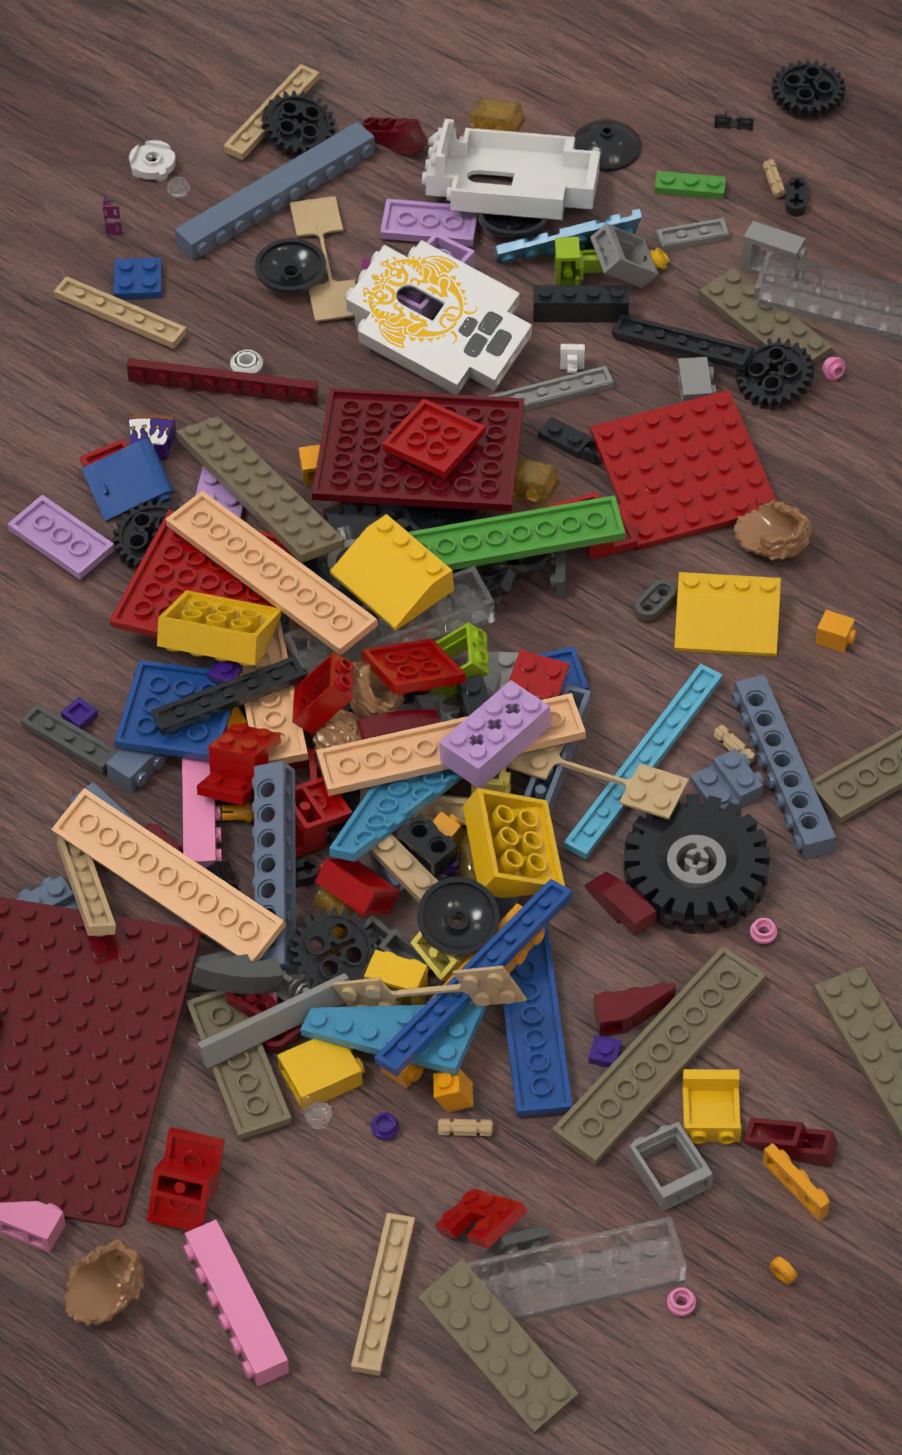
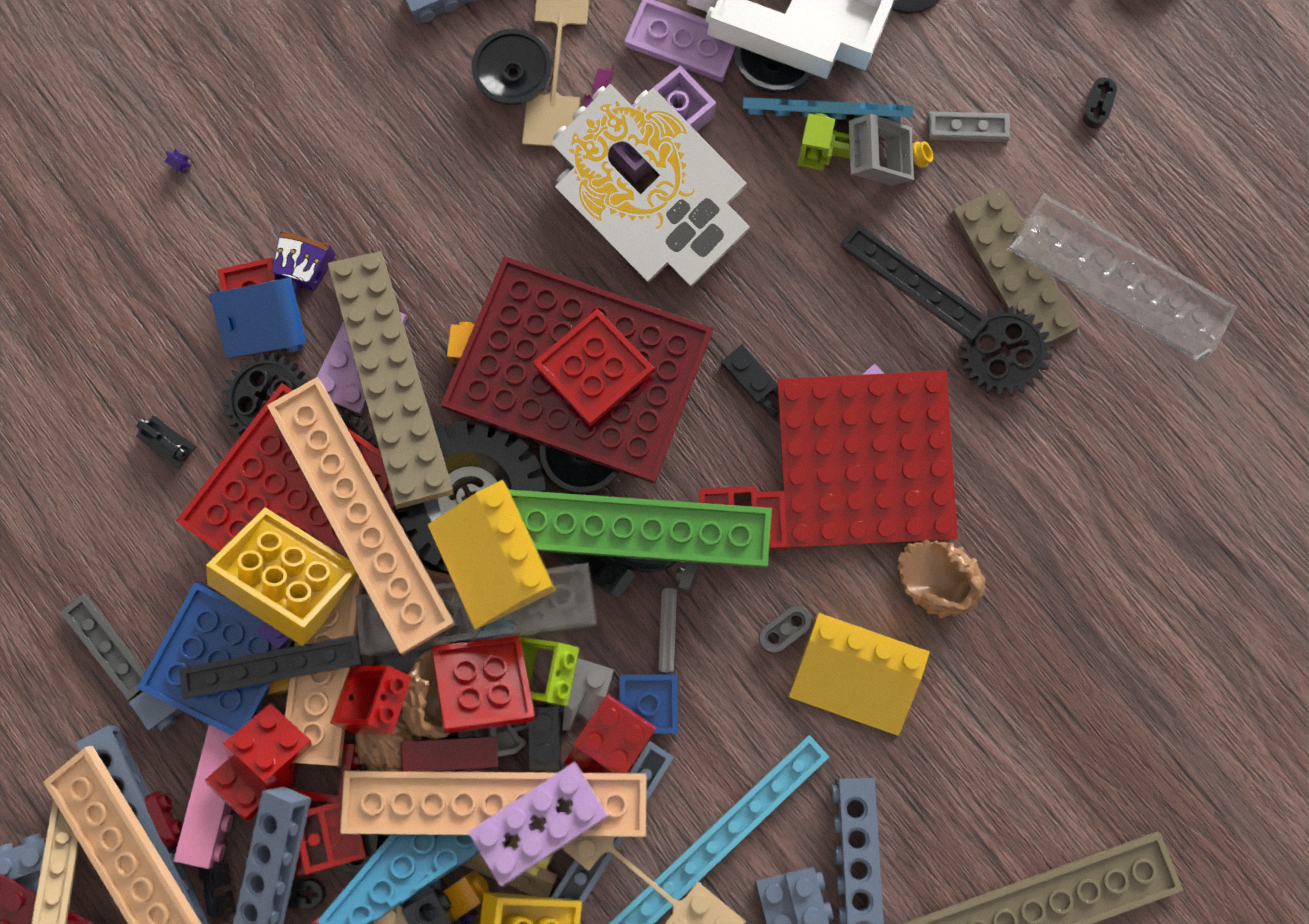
camera: 15 degrees right, 25 degrees up
(17, 391) = (178, 160): none -> dark purple plate
(61, 537) = (171, 371): lavender plate -> none
(71, 587) = (164, 440): none -> black hinge
(79, 713) = (126, 617): dark purple plate -> none
(120, 312) = (315, 80): tan plate -> none
(138, 278) = (349, 36): blue plate -> none
(223, 381) = (406, 208): dark red plate -> none
(247, 361) = (429, 188): white cone -> none
(535, 480) = (697, 434): clear yellow brick -> none
(554, 621) = (667, 630): none -> light grey axle
(562, 388) = (746, 306): light grey tile -> none
(572, 357) = (787, 270): white tile -> none
(580, 303) = (816, 197): black brick -> none
(690, 185) = (985, 56): bright green plate -> none
(695, 378) = (913, 340): light grey brick -> none
(731, 742) = (817, 850): tan axle -> none
(771, 238) = (1049, 175): light grey window -> none
(774, 178) = (1081, 71): tan axle -> none
(834, 368) = (1074, 358): bright pink plate -> none
(835, 631) = (972, 729): light orange brick -> none

